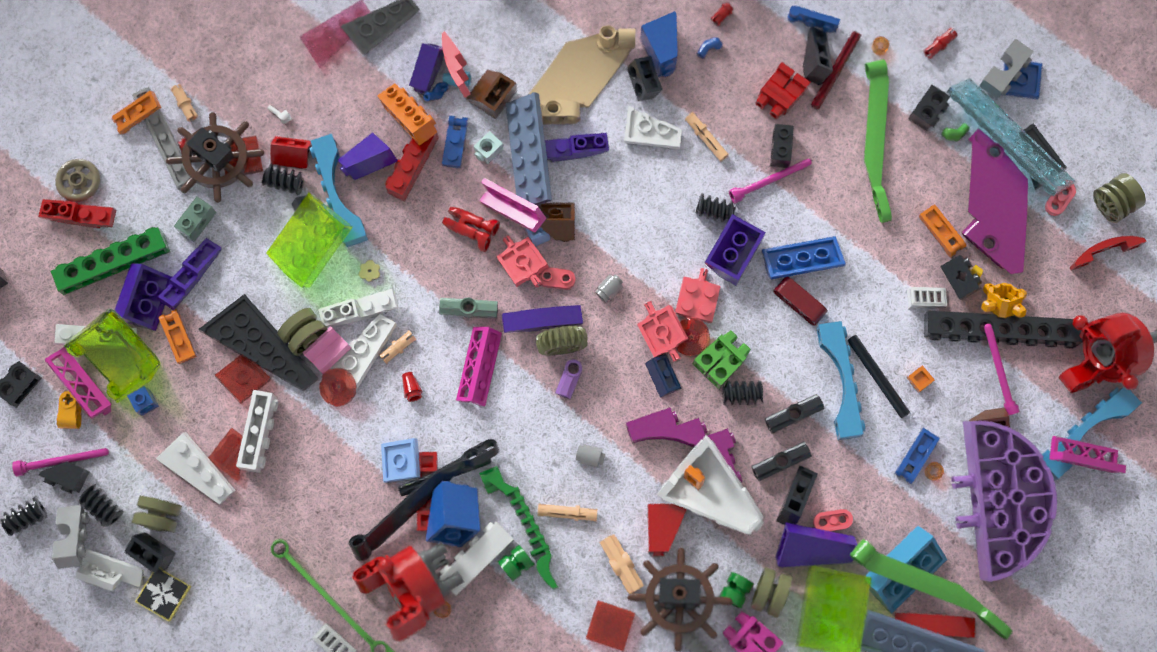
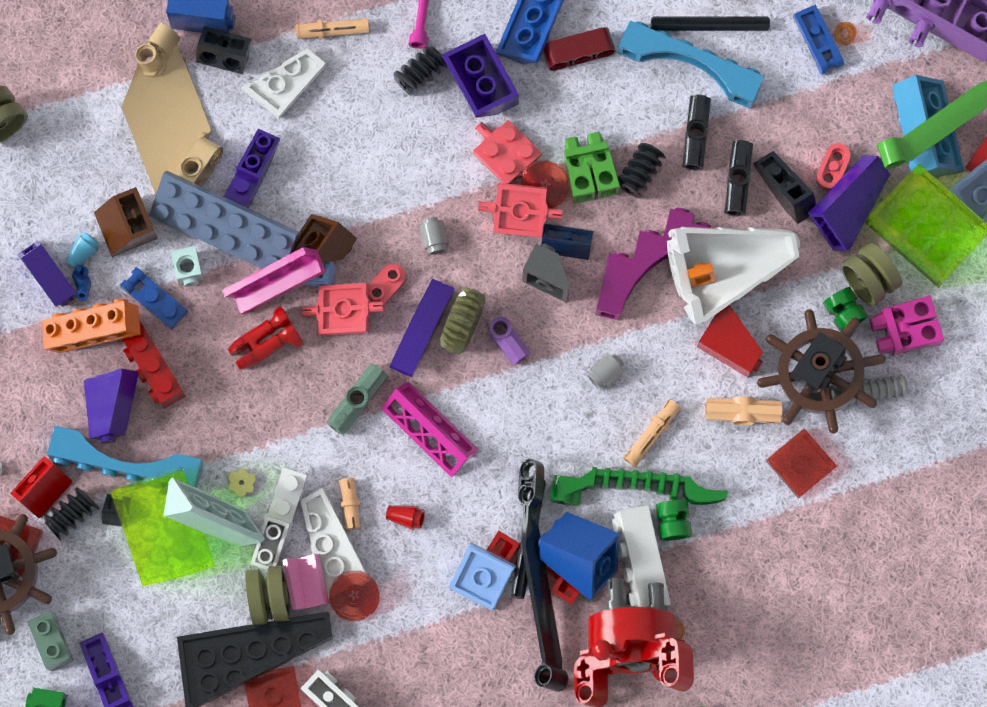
camera: 60 degrees left, 0 degrees up
(330, 261) = (210, 515): none -> light aqua slope
(455, 63) = (66, 238): coral slope -> none
(631, 372) = (546, 272): none -> dark grey slope

